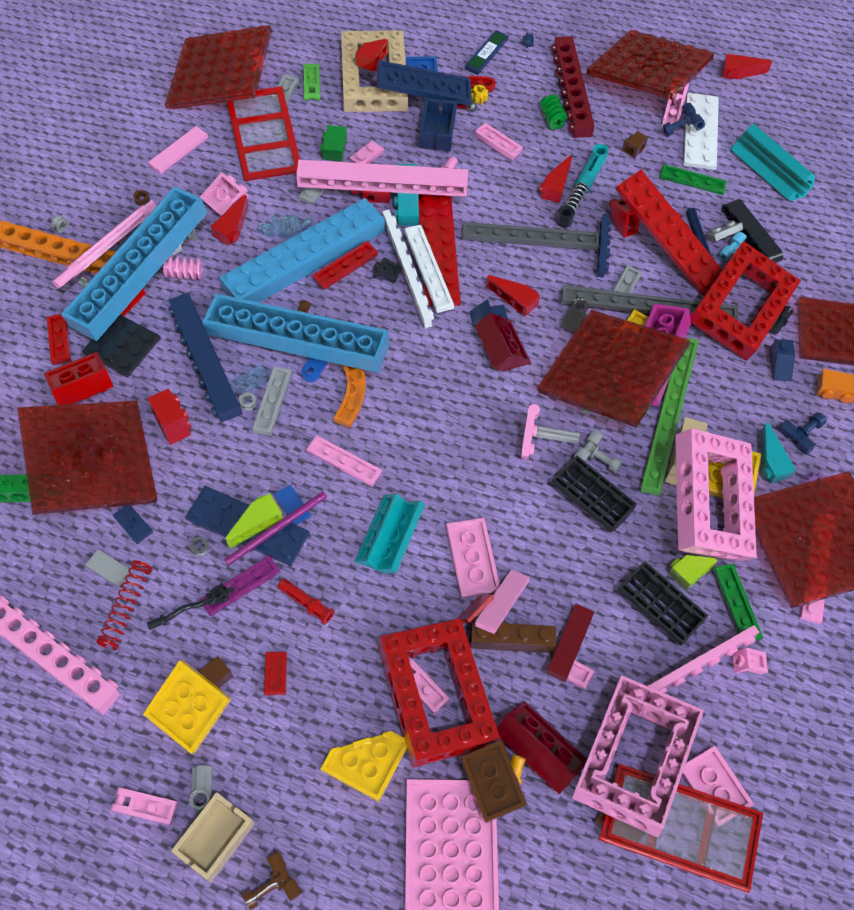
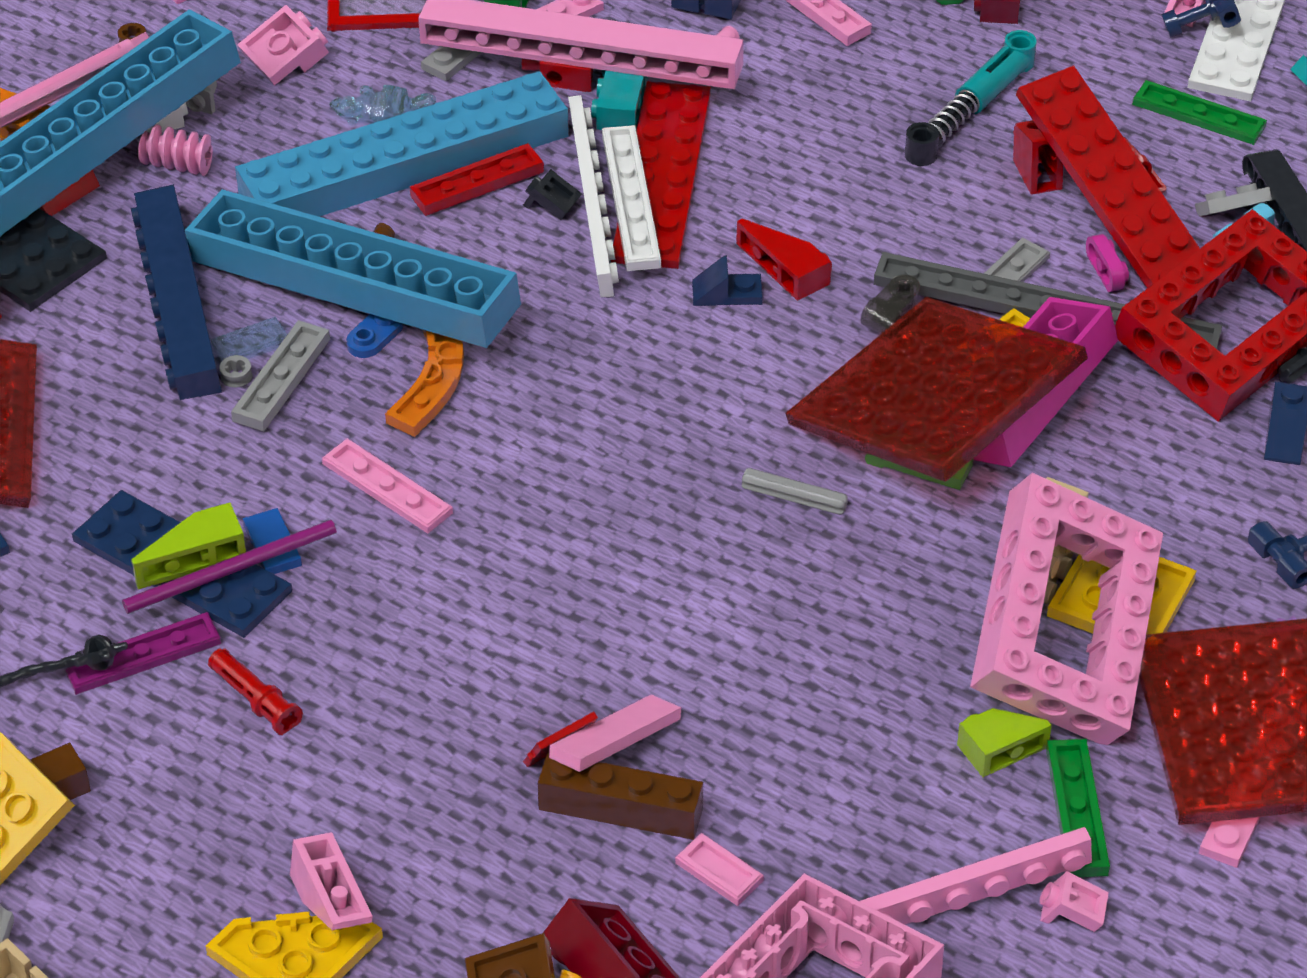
camera: 15 degrees right, 15 degrees down
(170, 416) = (87, 370): red brick -> none
(195, 541) = (89, 590): flat silver bush -> none
(229, 225) = (282, 91): red slope -> none
(275, 673) = (167, 793): red plate -> none
(379, 724) = (327, 882): none -> bright pink slope
(389, 533) = (437, 607): teal slope -> none
(420, 742) = (445, 934): red brick -> none
(429, 692) = (431, 853): bright pink plate -> none
(472, 557) = (583, 663): bright pink tile -> none
(501, 343) = (738, 333): dark red slope -> none
(530, 236) = (846, 170): dark grey plate -> none
(530, 430) = (746, 474): bright pink plate -> none
(555, 182) = (921, 85): red slope -> none
(570, 642) = (729, 821): dark red tile -> none
(591, 450) = (865, 525): light grey bar -> none
(600, 488) = (855, 581): black piece -> none
(604, 241) = (981, 208): dark blue plate -> none
(634, 144) = (1096, 41): reddish brown brick -> none
(668, 422) = (1052, 459): bright green plate -> none
(669, 596) = (939, 771): black piece -> none
(672, 275) = (1106, 262): none -> dark pink plate
(696, 227) = (1182, 193): dark blue axle -> none
(774, 459) = (1222, 589): teal slope -> none

